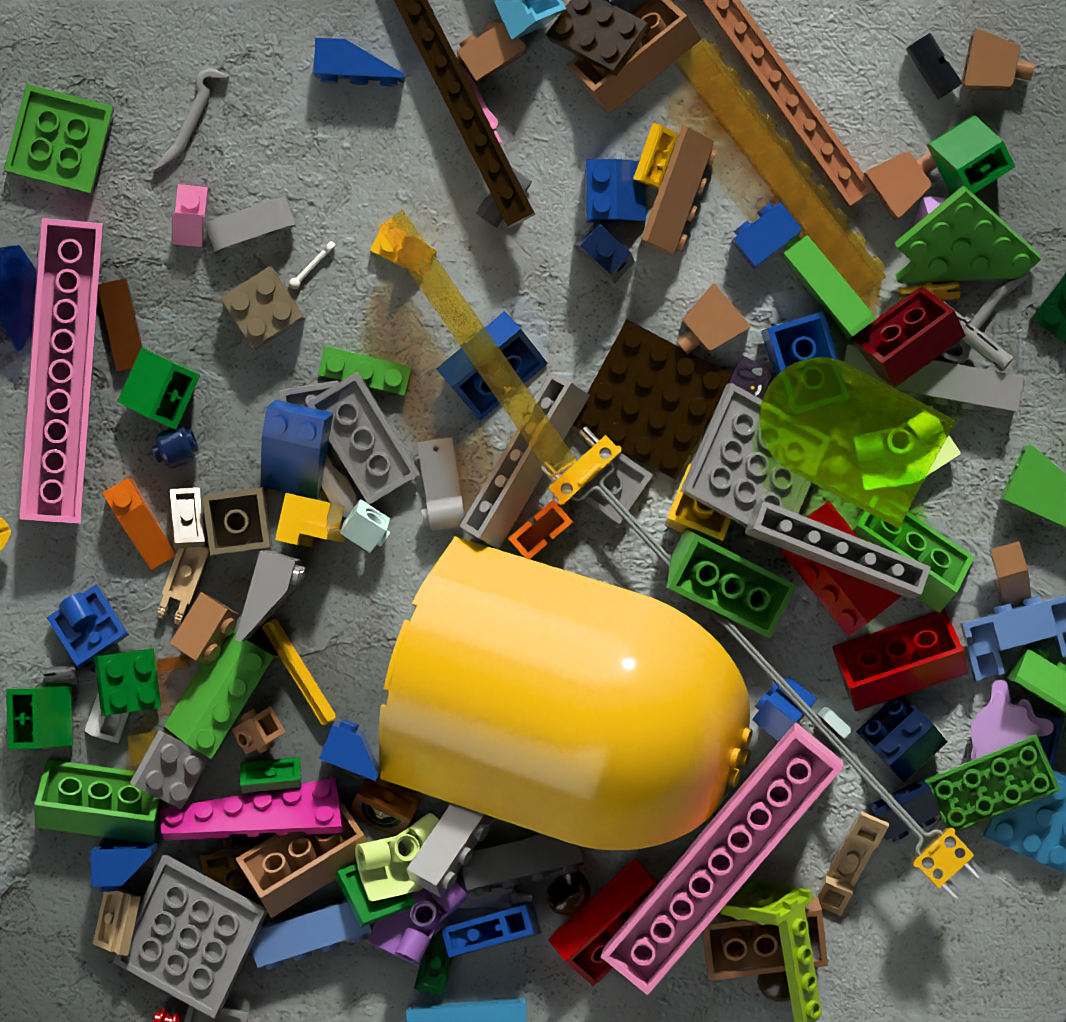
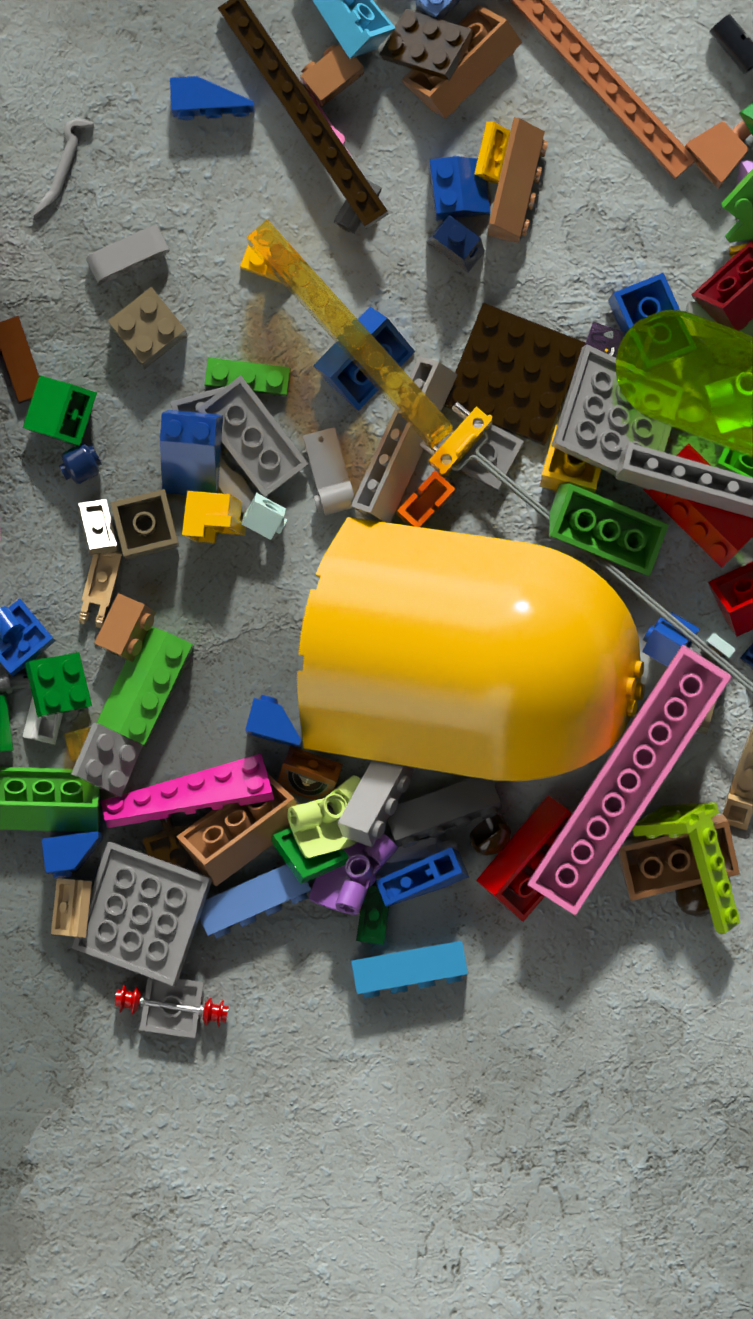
camera: 10 degrees left, 5 degrees down
(139, 523) = (54, 537): orange slope -> none
(173, 663) = (98, 663): clear orange tile -> none
(189, 216) = (71, 253): bright pink slope -> none
(258, 730) = (184, 715): medium nougat brick -> none
(270, 775) = (200, 756): green plate -> none
(272, 583) = (184, 577): light grey slope -> none
(294, 283) = (174, 304): white hinge -> none
(298, 671) = (216, 659): yellow axle -> none
(711, 322) = (562, 296): medium nougat torso -> none
(766, 234) = (602, 211): blue brick -> none
(778, 166) = (608, 151): clear yellow brick -> none
(827, 286) = (664, 252): bright green slope -> none

